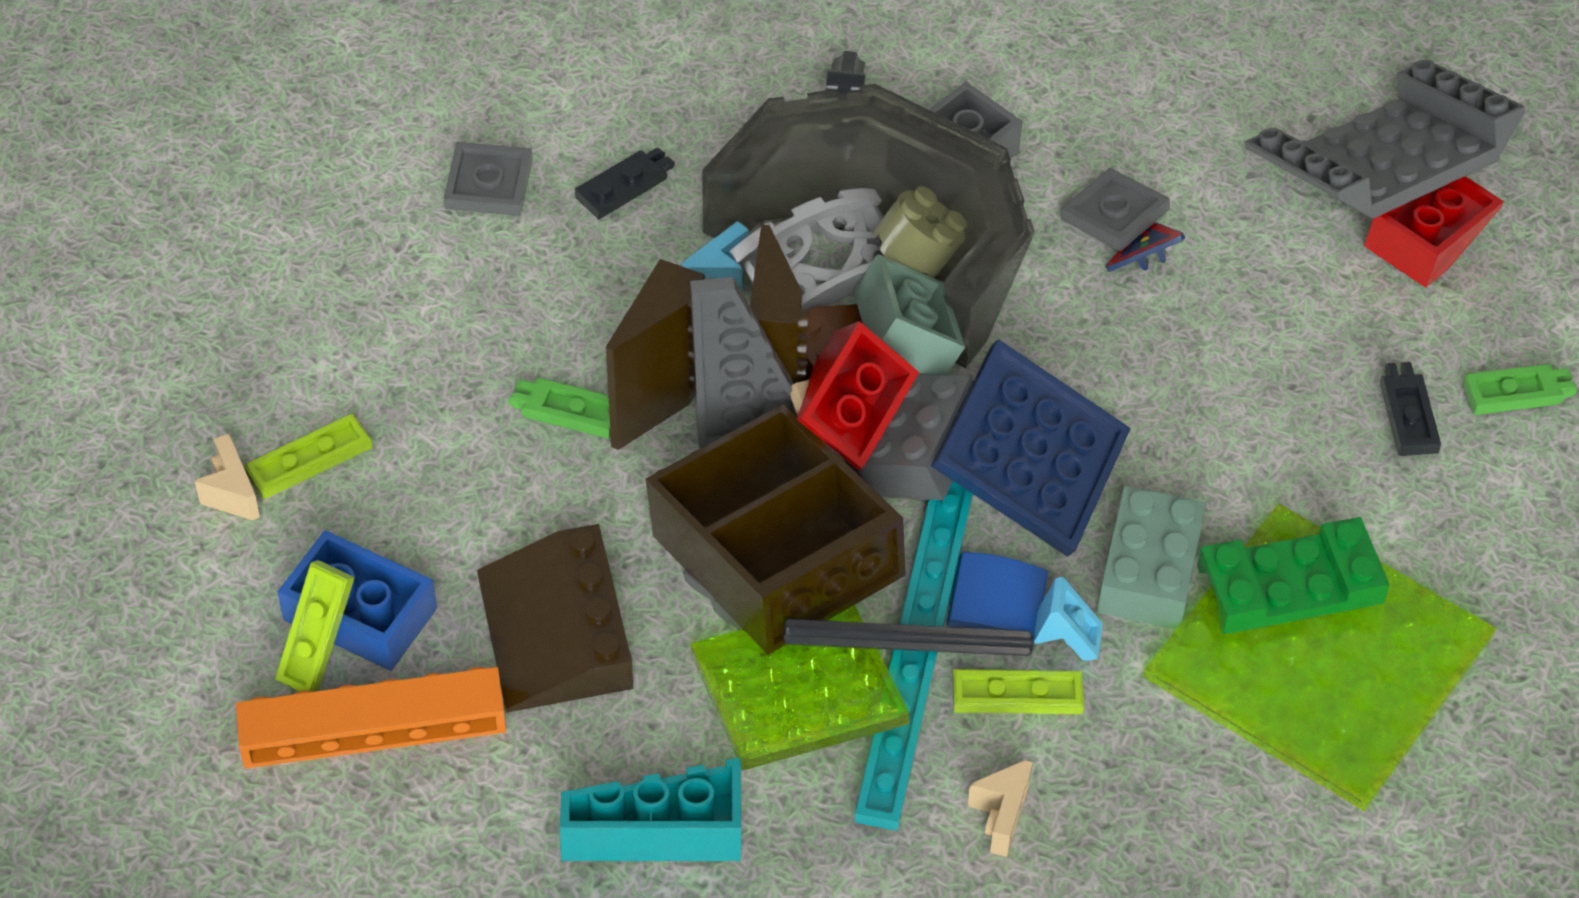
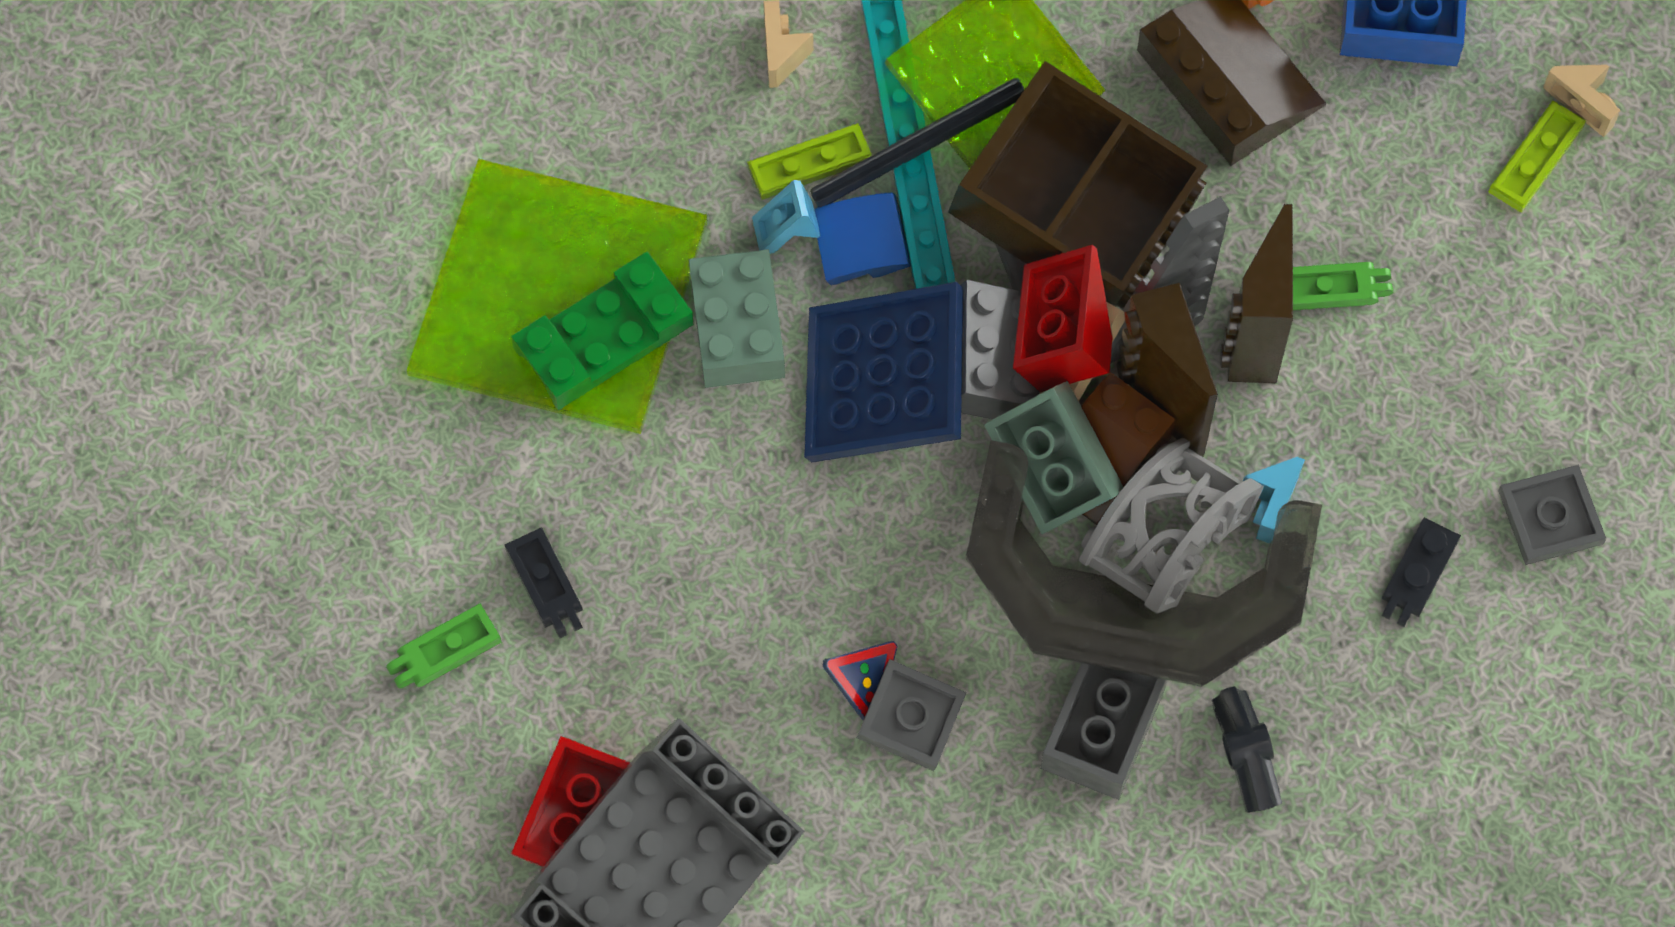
camera: 160 degrees right, 15 degrees up
(920, 232) = (1089, 538): olive brick -> none

